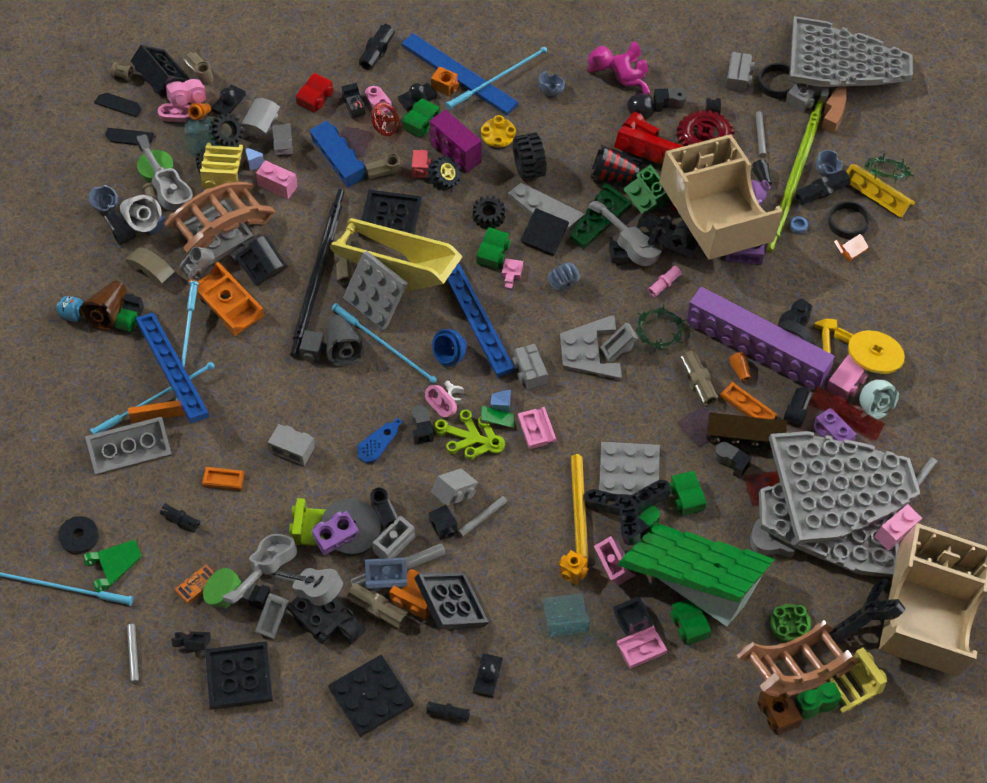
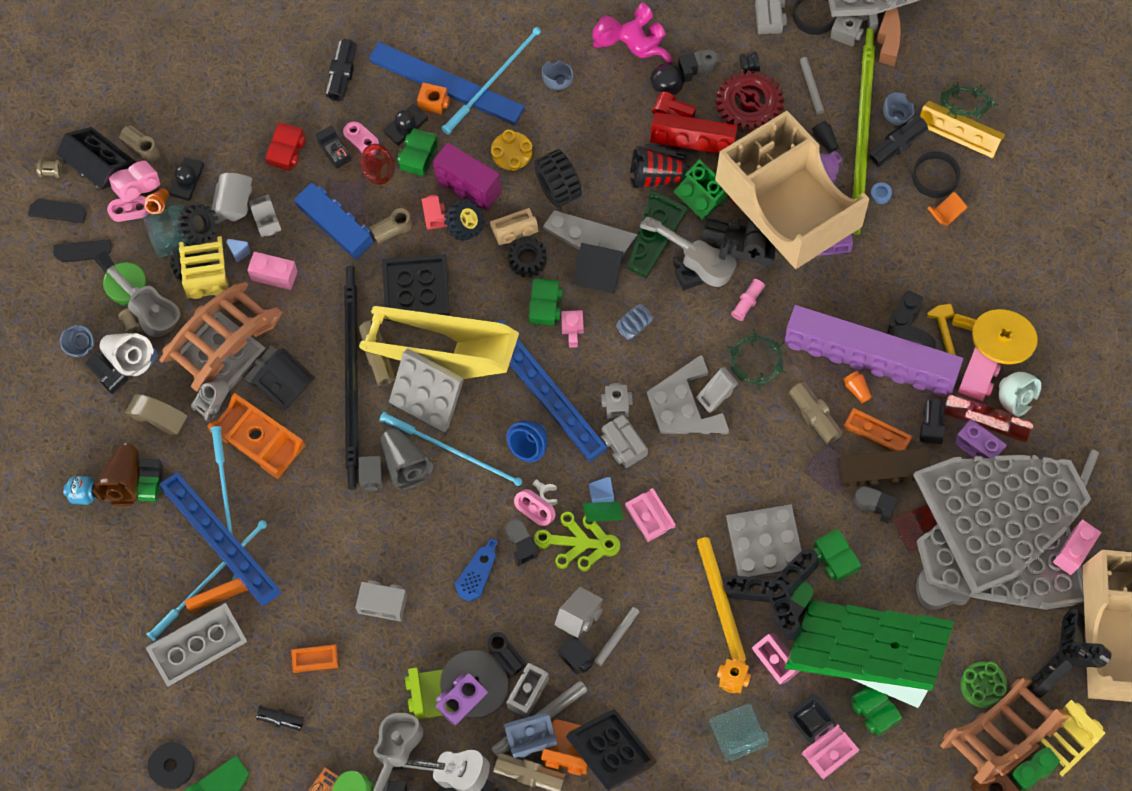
camera: 10 degrees left, 10 degrees up
(484, 186) = (514, 226): none -> tan bracket
(532, 333) = (616, 400): none -> light grey brick

